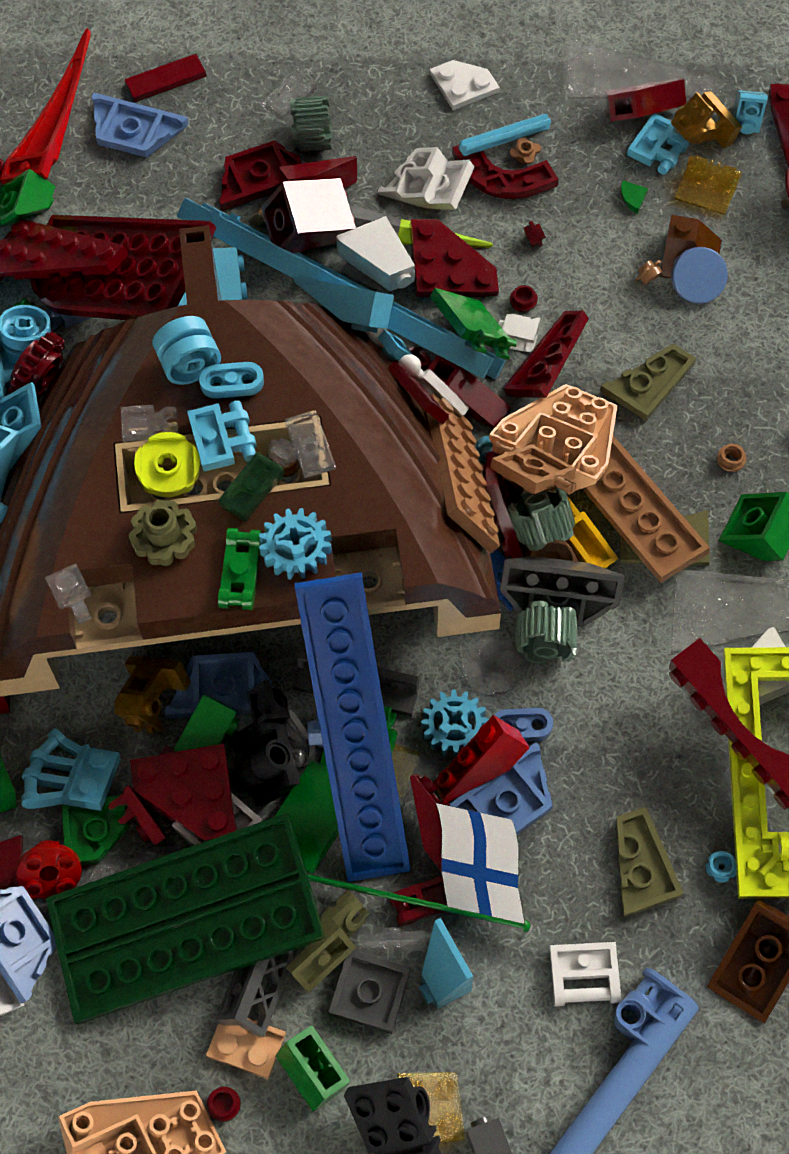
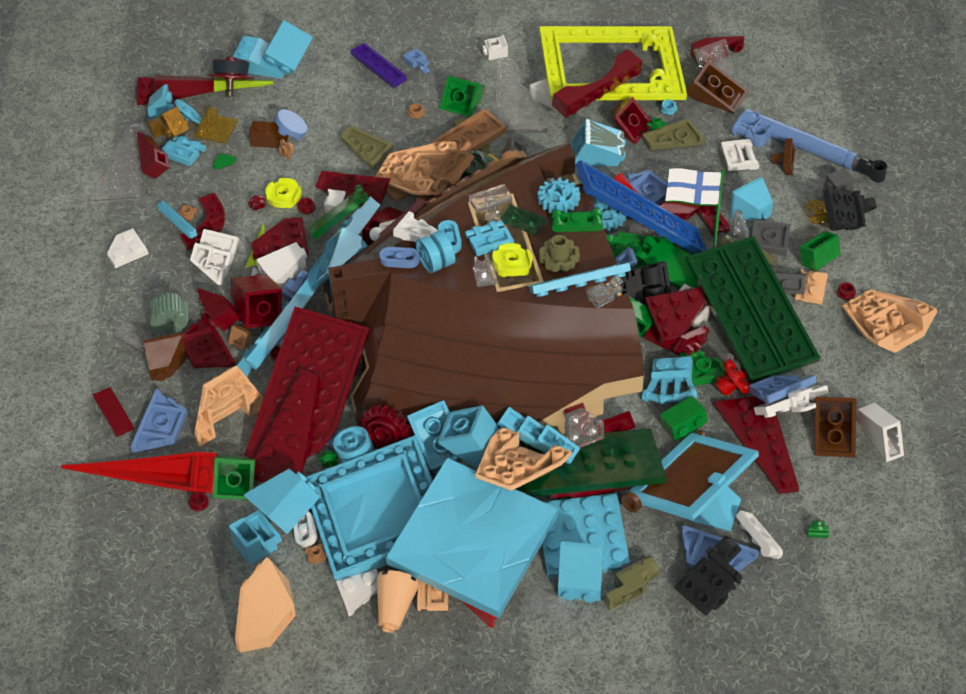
camera: 95 degrees left, 15 degrees down
(102, 556) = (579, 279): none -> medium azure plate
(113, 164) = (222, 397): none -> light nougat wedge
(193, 307) = (399, 257): none -> medium blue plate
(230, 119) = (164, 355): none -> reddish brown slope
(256, 334) = (412, 229): none -> white wing
(343, 269) = (292, 286): none -> medium blue plate
(553, 282) = (275, 194): none -> neon yellow plate
(568, 1059) = (786, 157): none -> reddish brown tile
(616, 729) = (598, 144): none -> medium azure slope
(667, 838) = (656, 123): none -> green plate
(682, 788) = (631, 119): none -> dark red slope
(738, 142) = (188, 112): none -> medium azure dish

